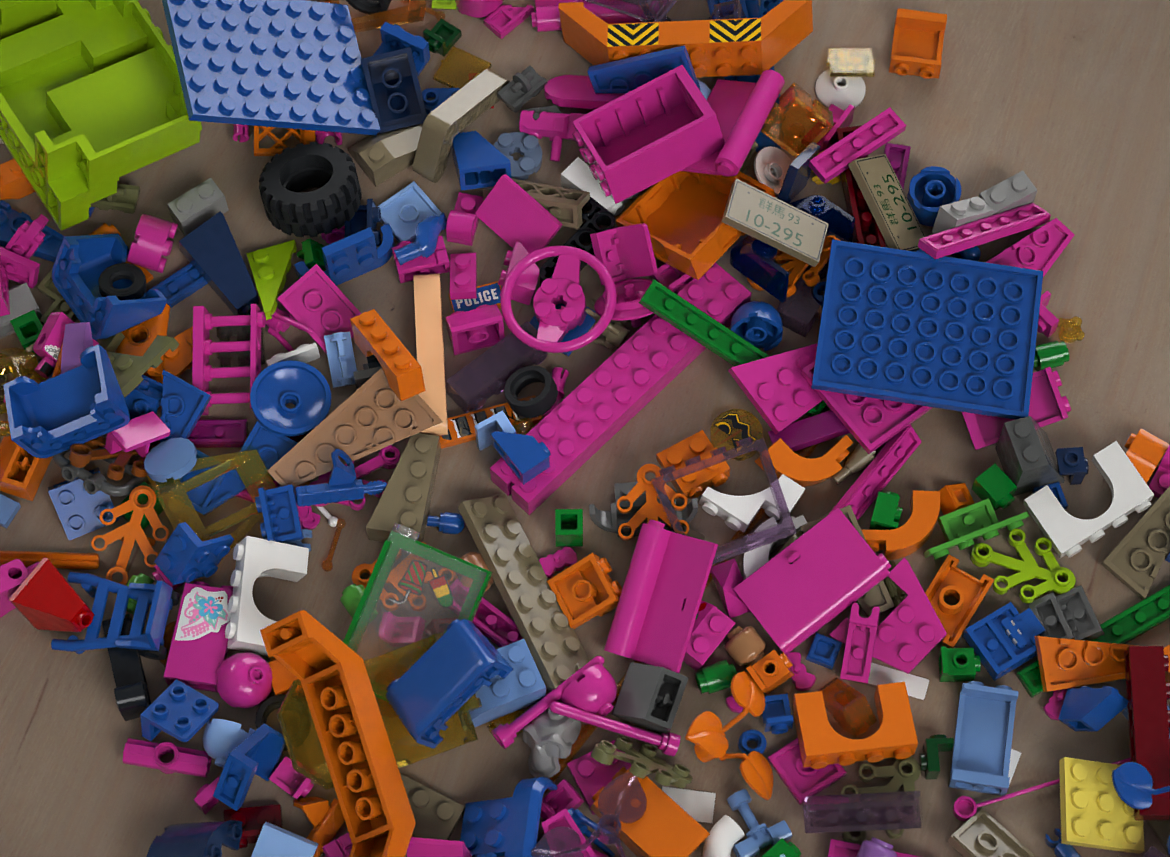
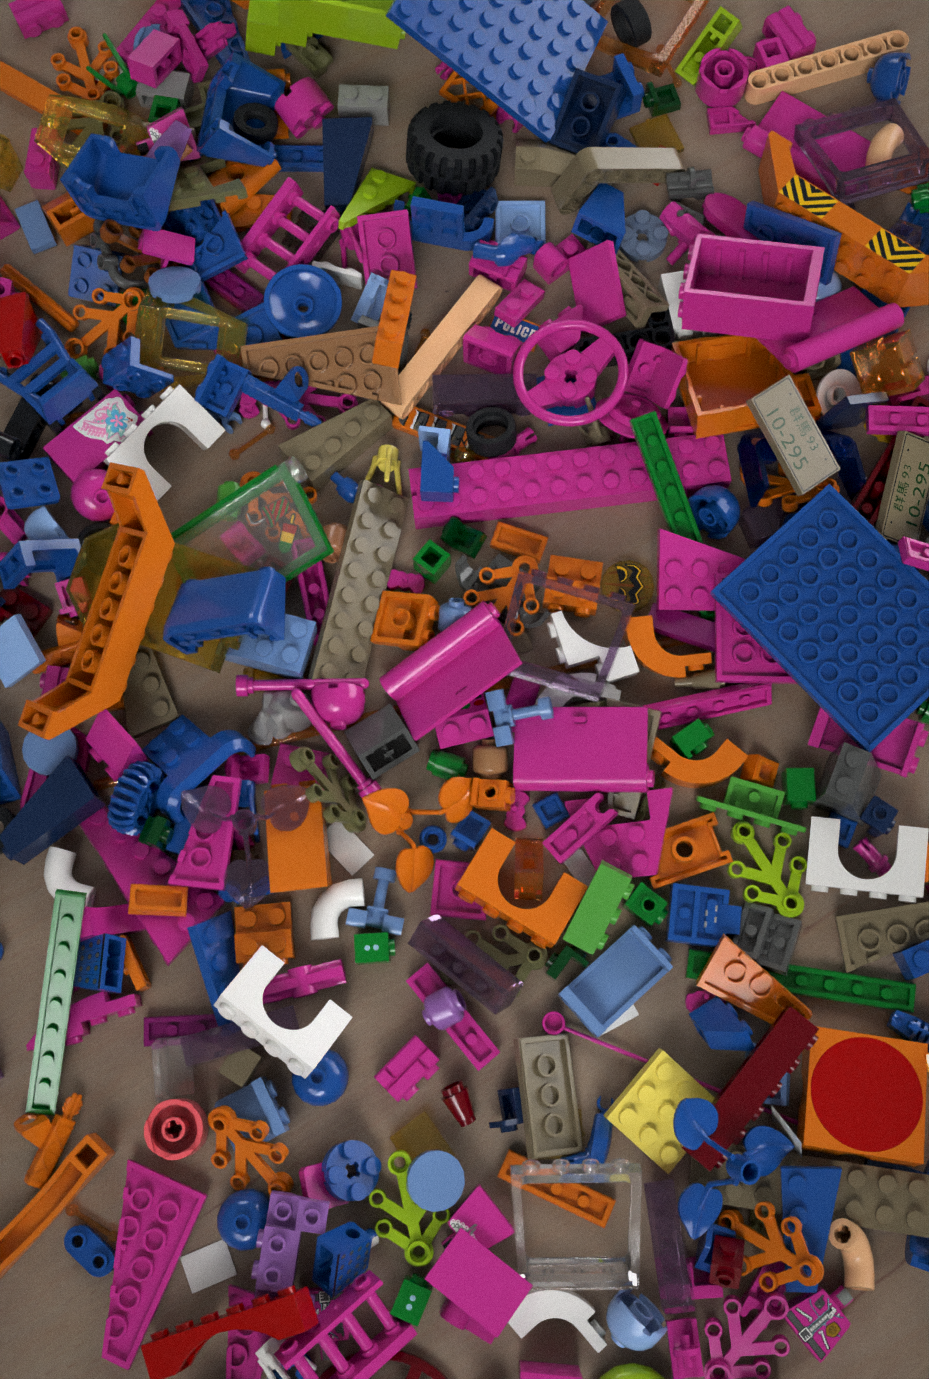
camera: 40 degrees right, 10 degrees up
(463, 477) = (387, 461): none -> light yellow plant
(576, 492) = (462, 538): none -> dark green bracket
(620, 463) = (518, 541): none -> orange tile
(620, 555) = (452, 611): none -> medium blue head
(734, 599) = (506, 716): none -> medium blue bar
(926, 691) = (599, 908): none -> bright green brick
(1096, 499) = (877, 862): none -> dark pink pin

